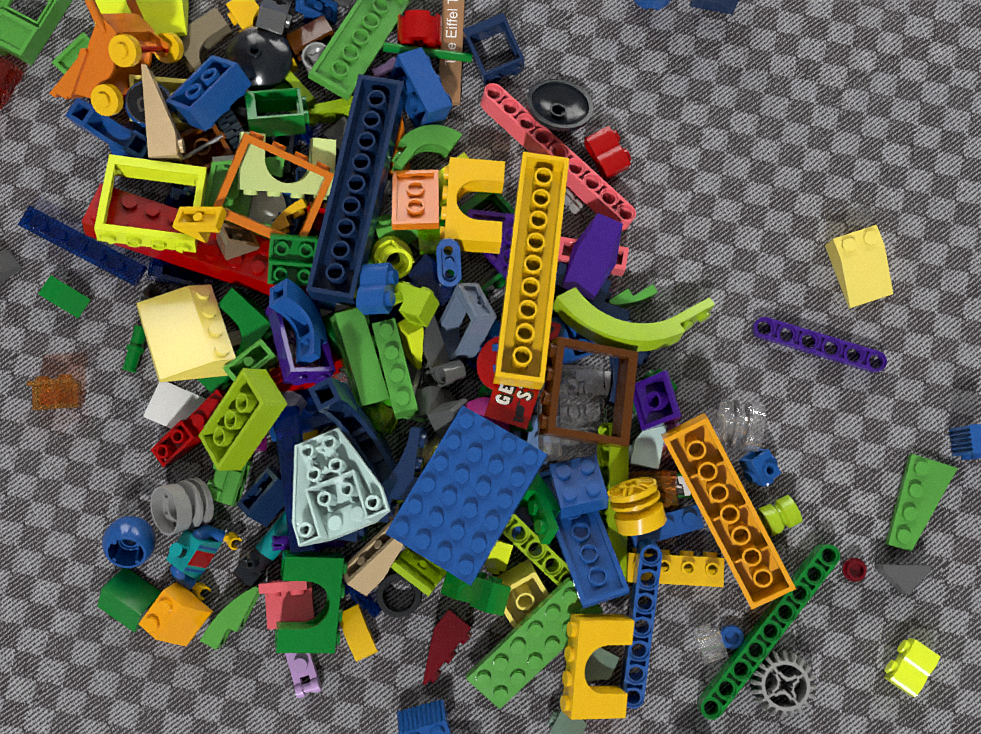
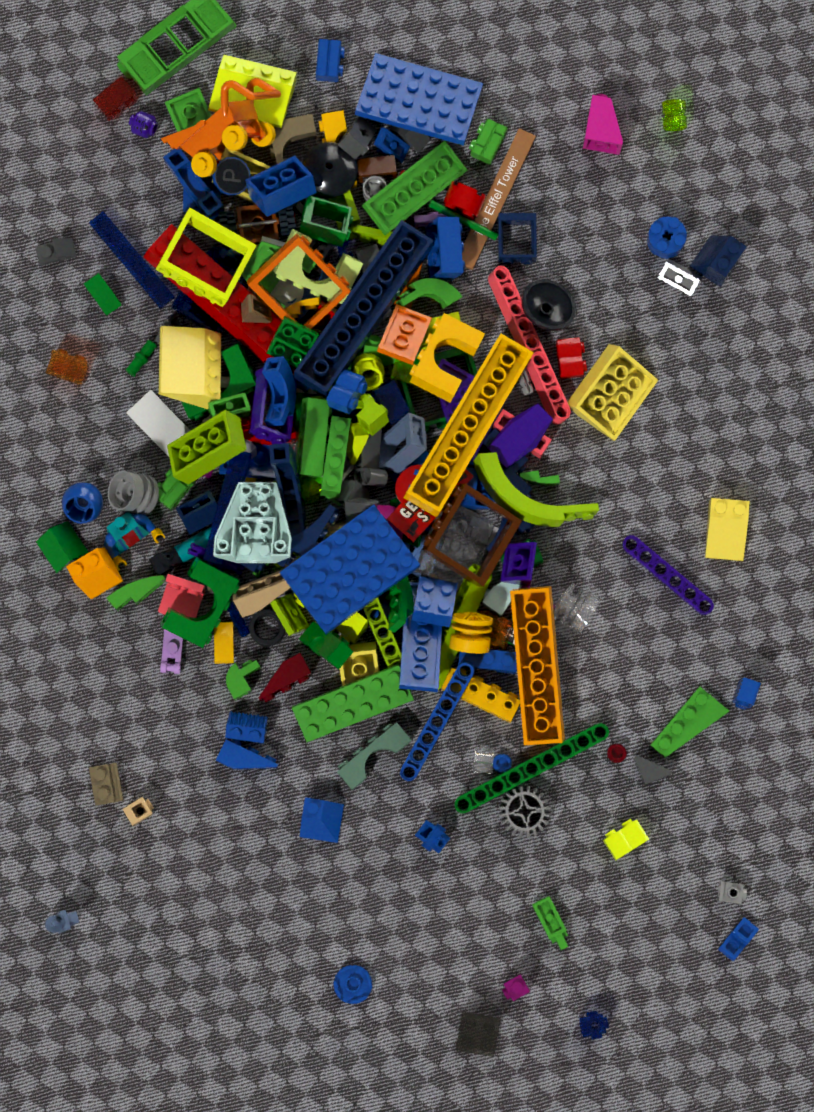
camera: 15 degrees right, 0 degrees up
(36, 95) = (143, 124): none -> dark purple head
(162, 134) = (234, 203): tan slope -> none
(185, 433) = (158, 439): red slope -> none
(199, 221) = (237, 288): yellow slope -> none
(389, 672) = (236, 678): none -> bright green brick
(448, 261) = (408, 393): blue plate -> none
(585, 636) = (392, 709): yellow arch -> none
(668, 169) = (612, 391): none -> light yellow slope
(685, 21) = (679, 277): none -> slope
(760, 467) = (578, 646): blue brick -> none
(780, 515) = (577, 688): lime wheel -> none

